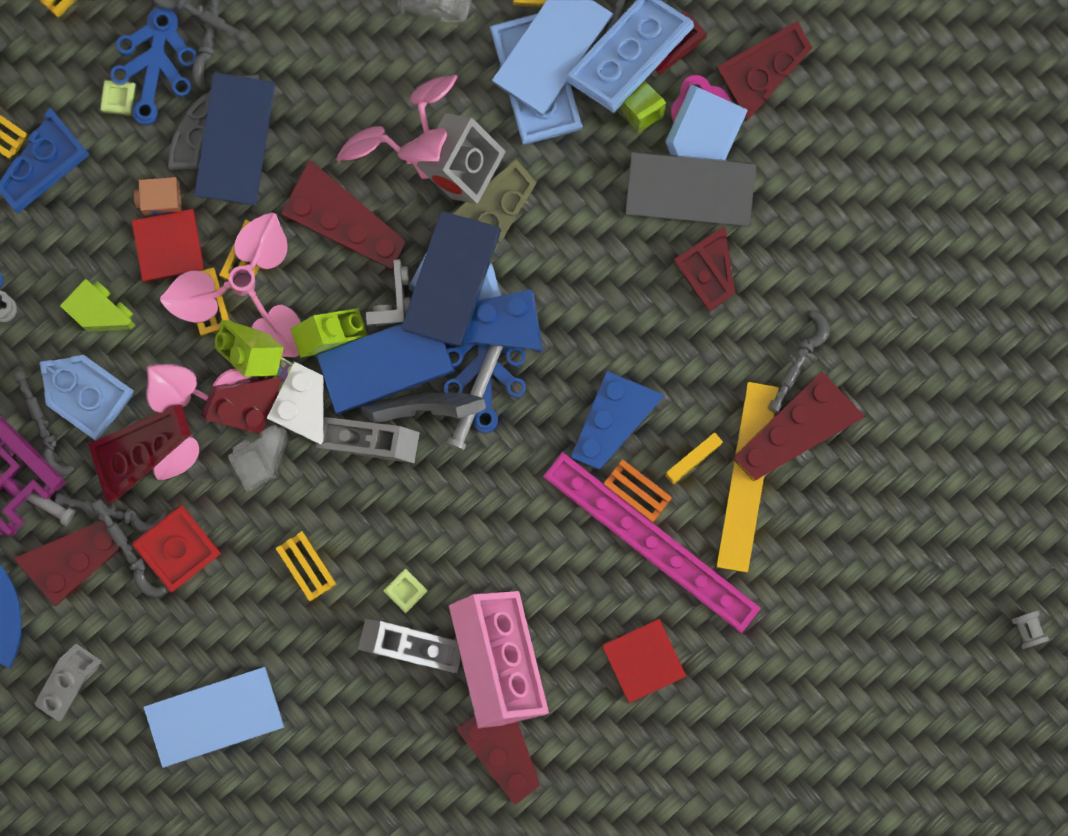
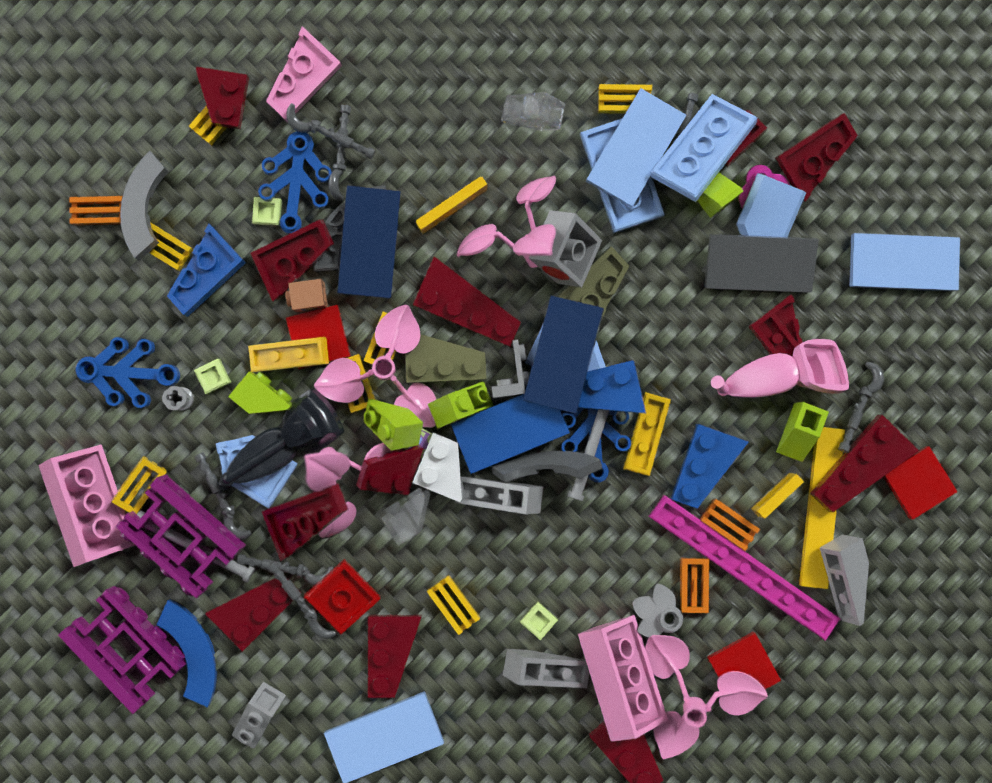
camera: 10 degrees left, 5 degrees up
(41, 284) = (212, 376): none -> yellowish green tile
(132, 263) = (288, 354): none -> yellow tile
(143, 151) = (291, 257): none -> dark red wing
(149, 341) = (306, 426): none -> black piece
(225, 617) = (388, 650): none -> dark red wing
(313, 282) = (443, 361): none -> olive wing
(334, 101) = (452, 205): none -> yellow tile
(541, 587) = (655, 609): none -> light grey plate
(546, 380) = (647, 434): none -> yellow tile
(560, 732) = (737, 695): none -> bright pink plant
(589, 587) = (704, 585): none -> orange tile
(725, 385) = (802, 430): none -> lime slope
(742, 309) = (814, 365): none -> bright pink piece
(769, 552) = (848, 576): none -> light grey slope
(861, 197) = (904, 262): none -> light blue tile
(864, 455) = (920, 483): none -> red tile

